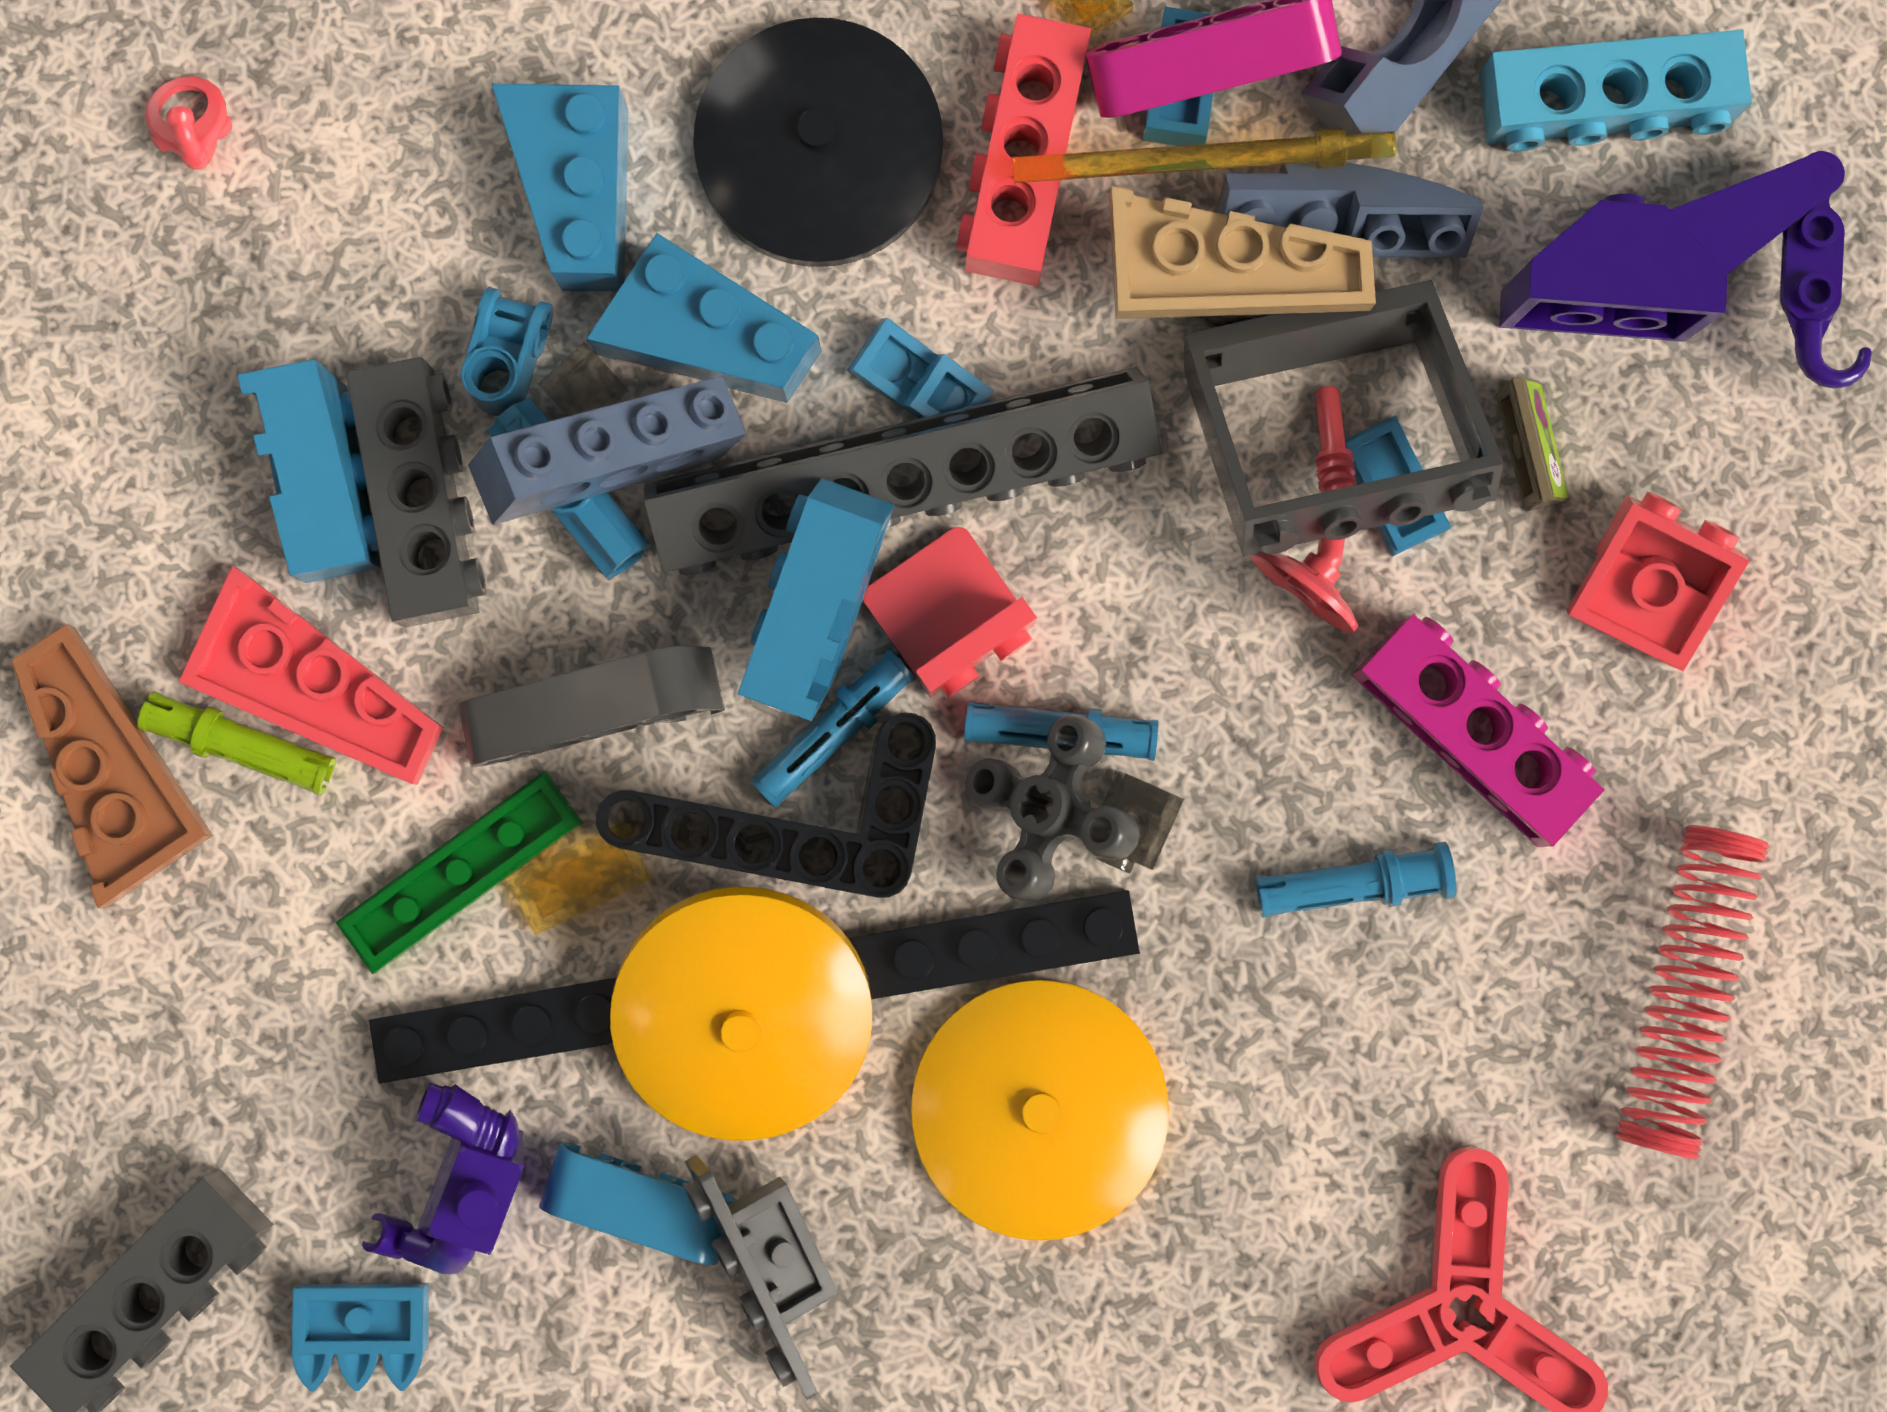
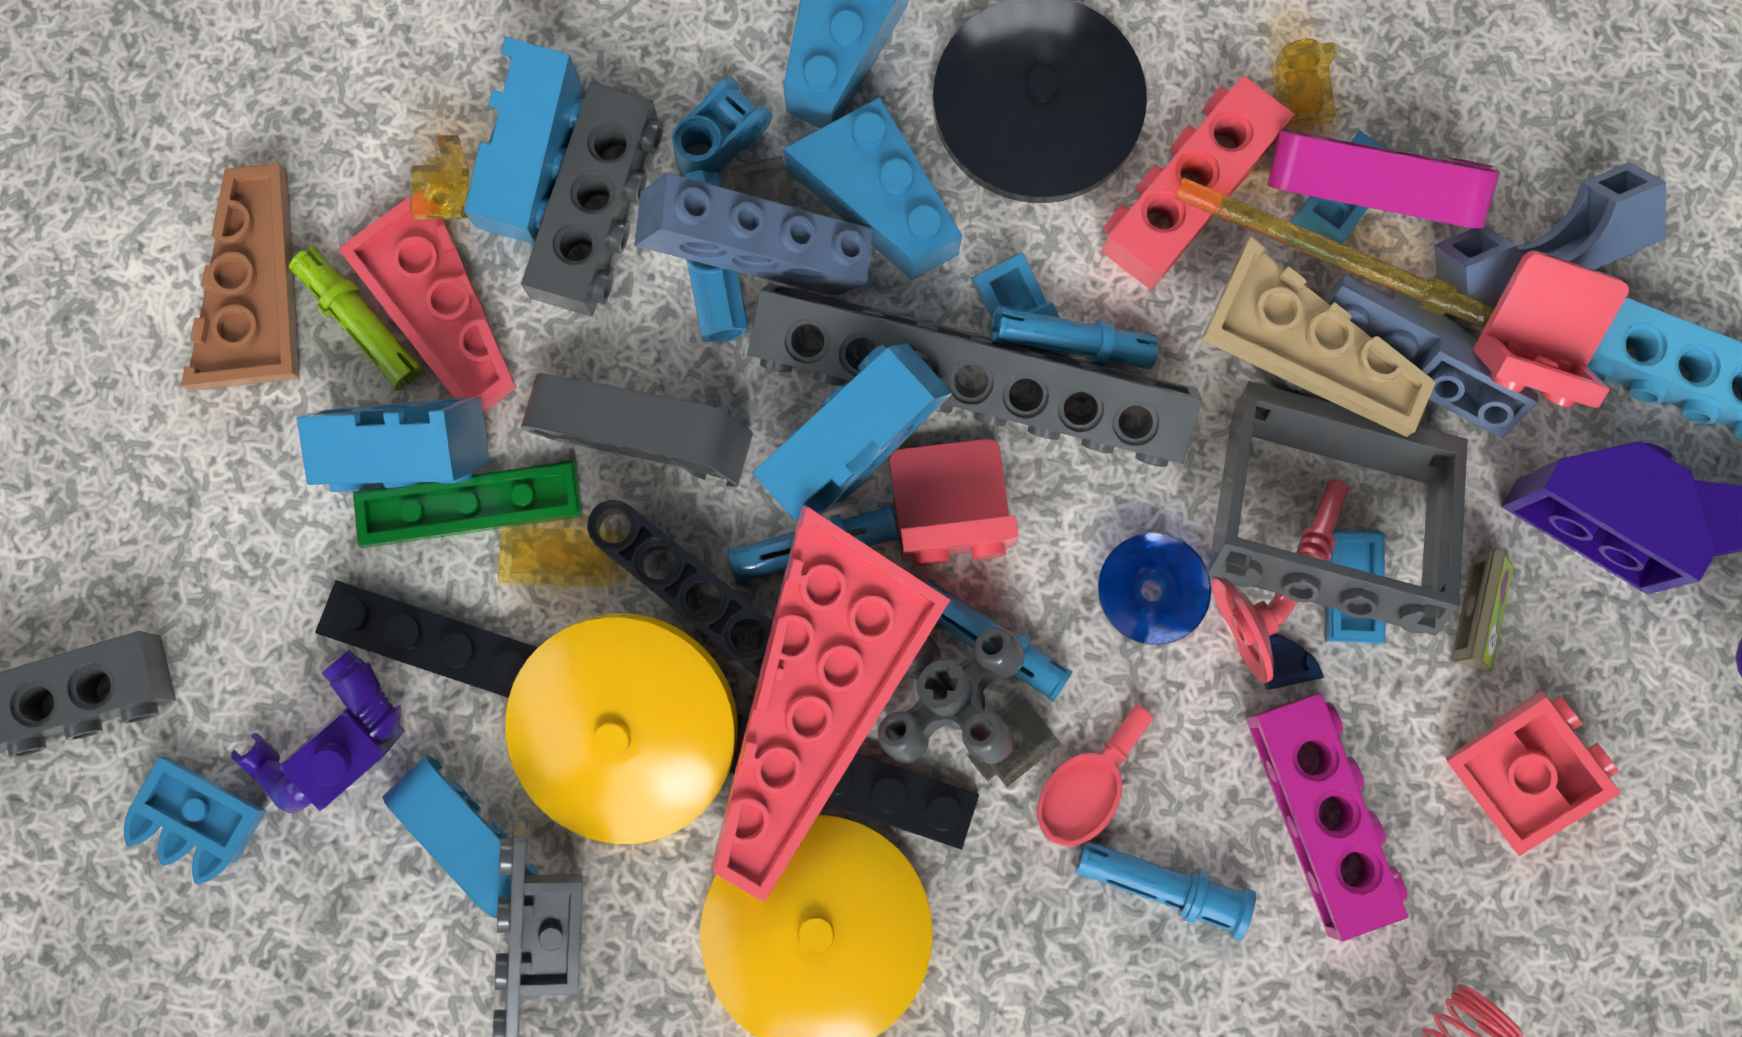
camera: 30 degrees right, 5 degrees down
(252, 557) = (442, 184): none -> clear yellow bracket
(353, 852) = (394, 443): none -> dark azure wedge
(918, 847) = (829, 668): none -> coral wing
(1010, 371) = (1095, 341): none -> dark azure pin
(1216, 568) = (1182, 583): none -> clear blue dish
(1232, 829) = (1088, 787): none -> coral piece
(1369, 597) = (1291, 664): none -> dark blue tile
(1459, 128) = (1550, 329): none -> coral bracket

